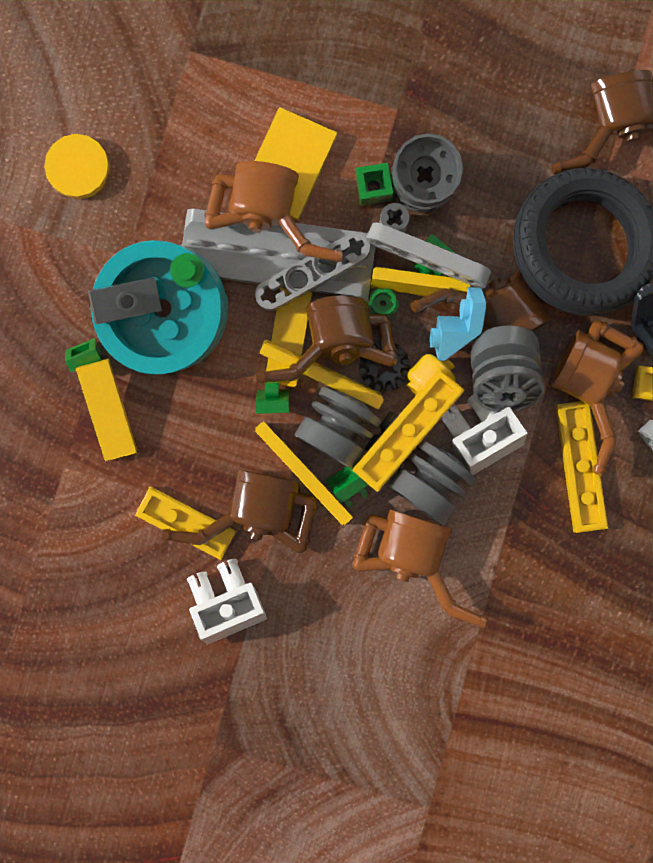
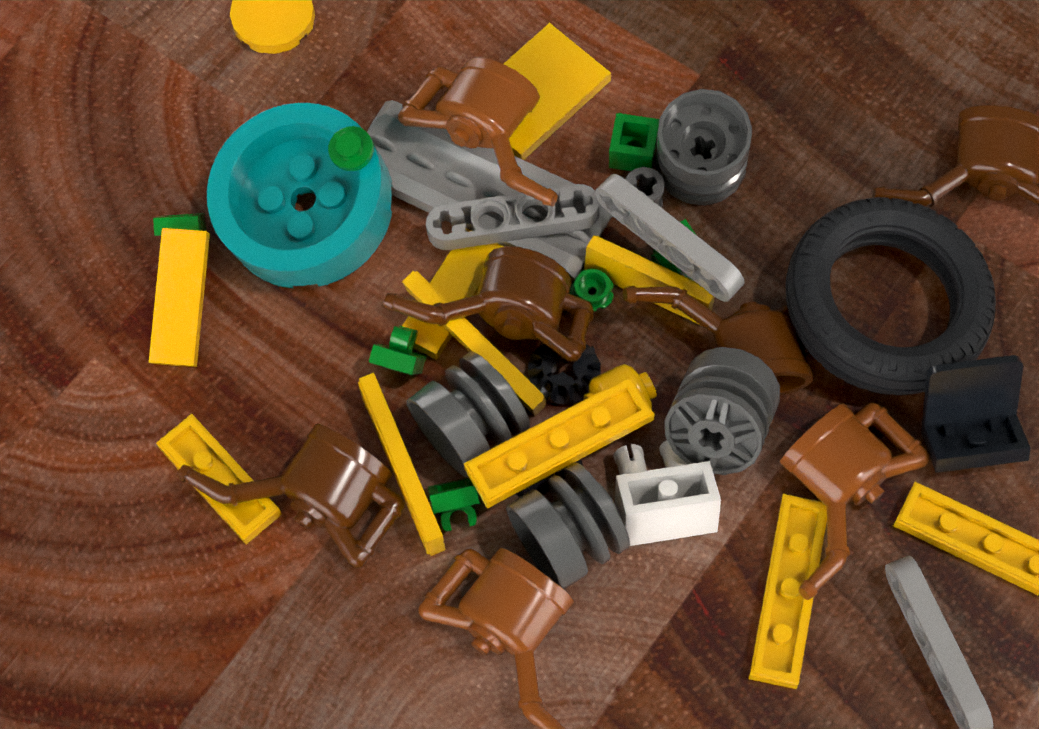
camera: 20 degrees right, 20 degrees down
(124, 300) = (259, 166): dark grey plate -> none
(226, 613) = (222, 603): white brick -> none
(456, 332) = (668, 344): medium azure slope -> none

